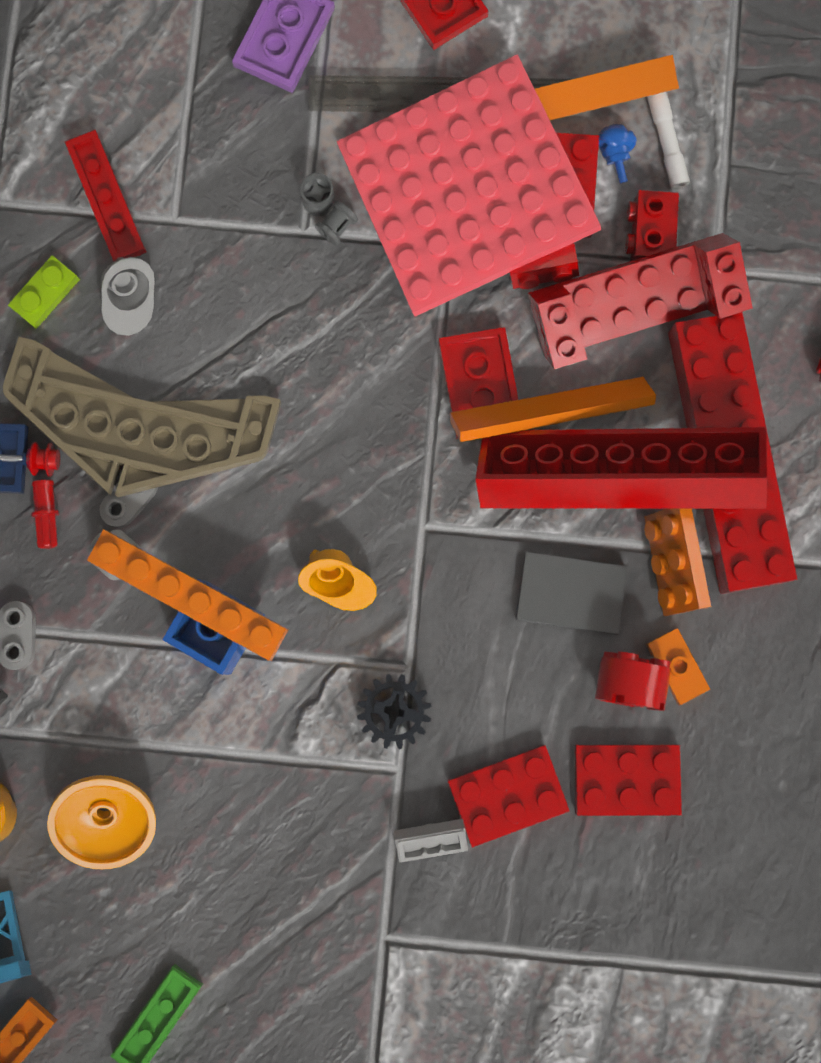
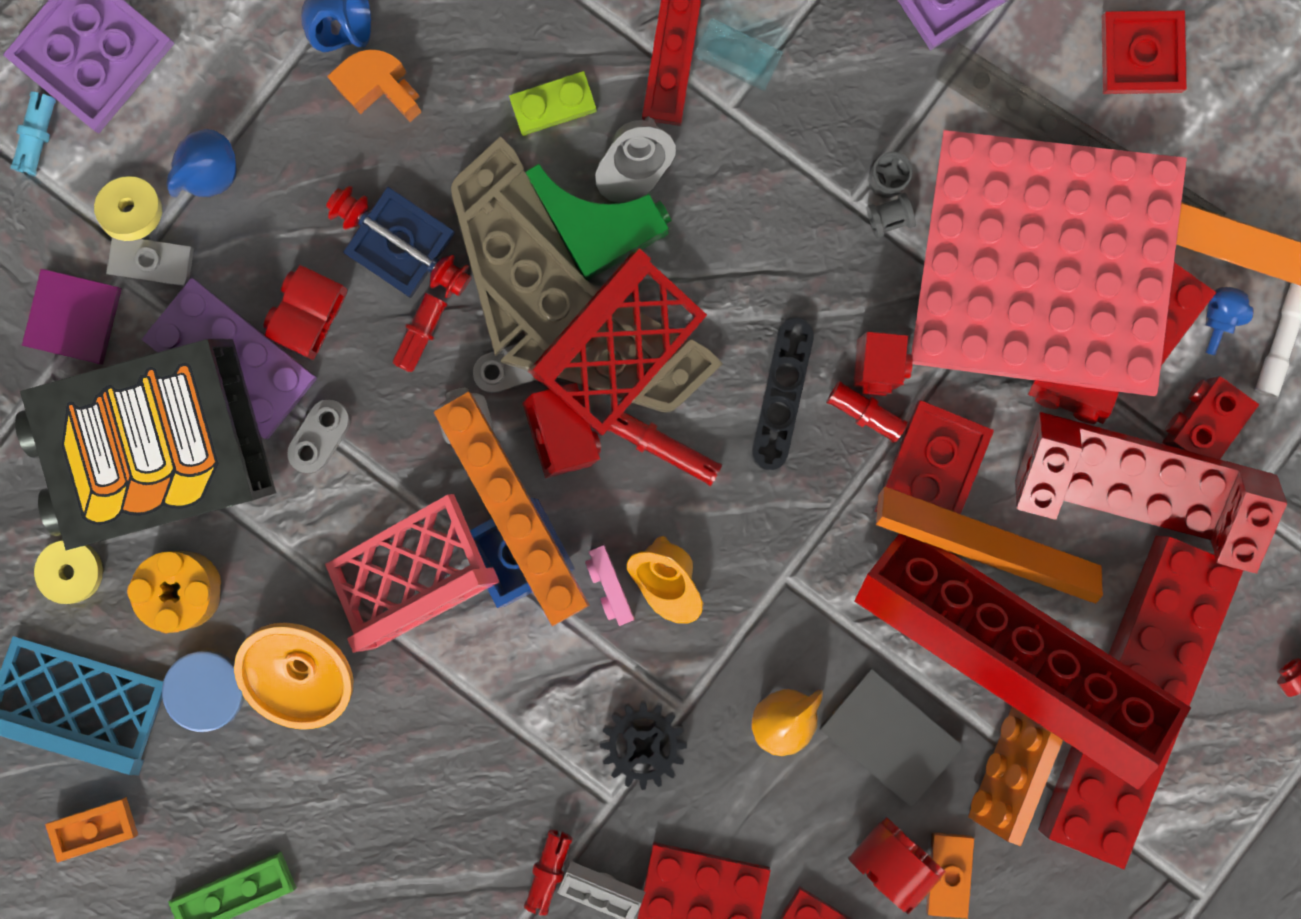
camera: 35 degrees right, 5 degrees up
(41, 879) = (202, 691): none -> medium blue tile
(133, 361) = (600, 233): none -> green arch
(156, 177) = (738, 54): none -> clear light blue plate
(163, 421) = (590, 320): none -> red fence
(169, 703) = (417, 608): none -> coral fence
(192, 518) = (560, 434): none -> red brick
(268, 486) = (666, 448): none -> red pin
(285, 602) = (602, 570): none -> bright pink plate
(336, 396) = (782, 394): none -> black beam
(383, 851) = (548, 872): none -> red pin
(393, 326) = (881, 363): none -> red brick
(406, 370) = (867, 412): none -> red pin
(487, 627) = (786, 721): none -> light orange piece

